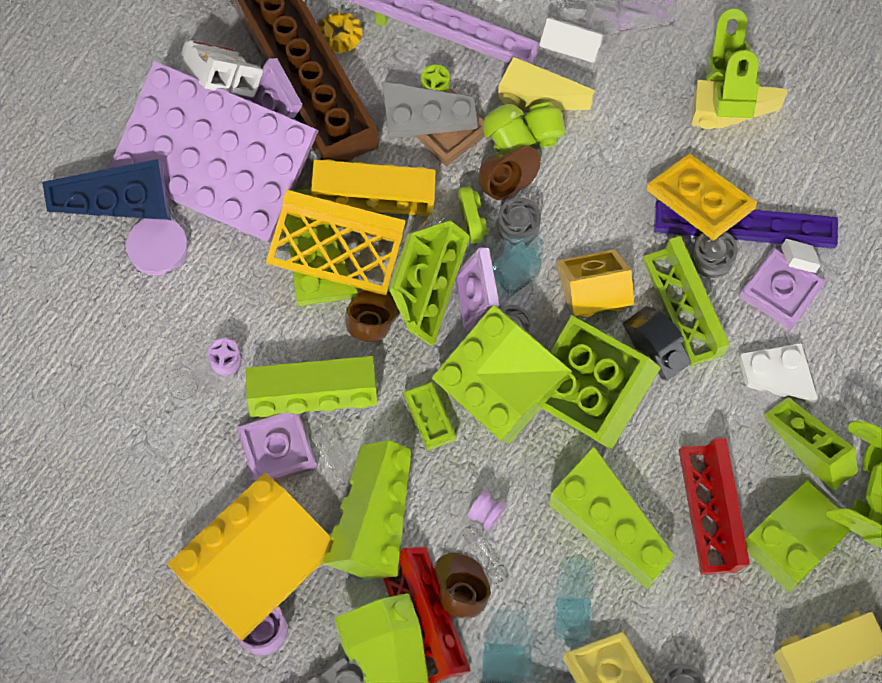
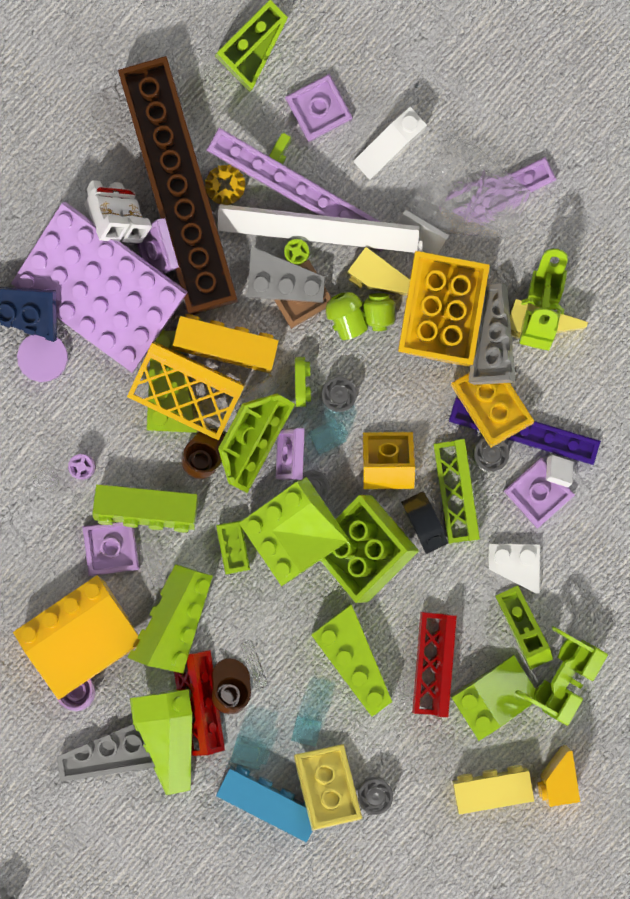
camera: 15 degrees right, 20 degrees up
(456, 49) = (318, 228): none -> white tile
(486, 510) = (261, 633): lavender wheel -> none
(507, 174) = (335, 352): reddish brown cap -> none
(620, 103) = (443, 308): none -> yellow slope
(683, 125) = (494, 347): none -> light grey wing

